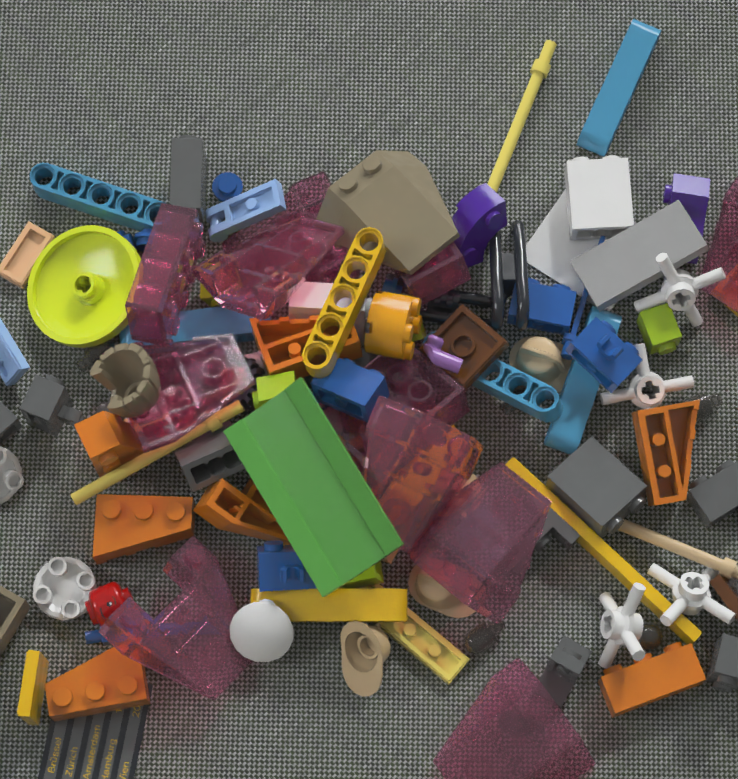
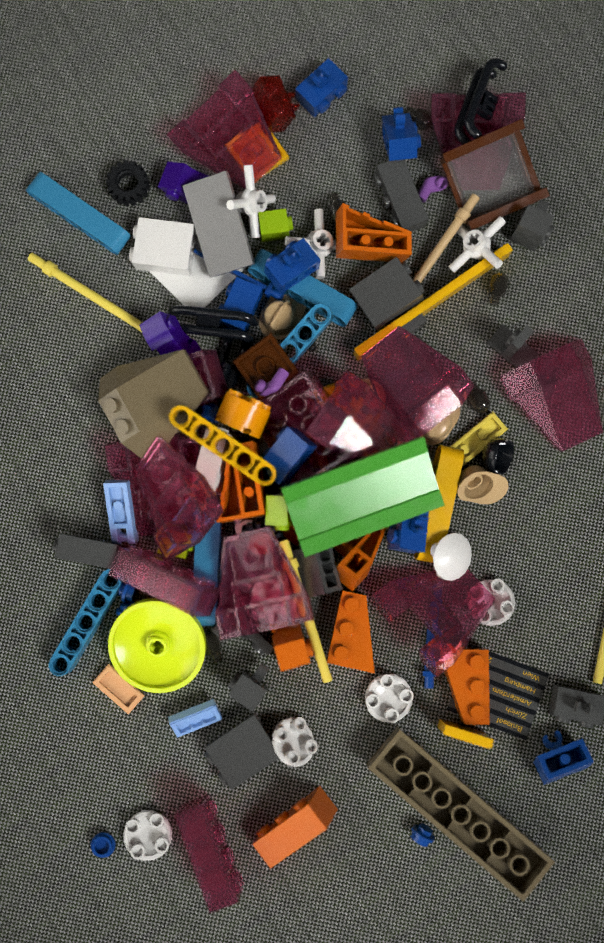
camera: 80 degrees left, 10 degrees up
(105, 601) = (409, 666): red head -> none
(130, 378) = (251, 620): dark tan hair -> none
(209, 713) = (503, 605): none -> white dish
(227, 186) = (96, 523): blue plate -> none
(408, 673) = (498, 455): none -> black hair
(622, 625) = (494, 297): white bar -> none
(651, 679) = (530, 286): orange brick -> none
(678, 123) = (121, 171): none -> black tyre

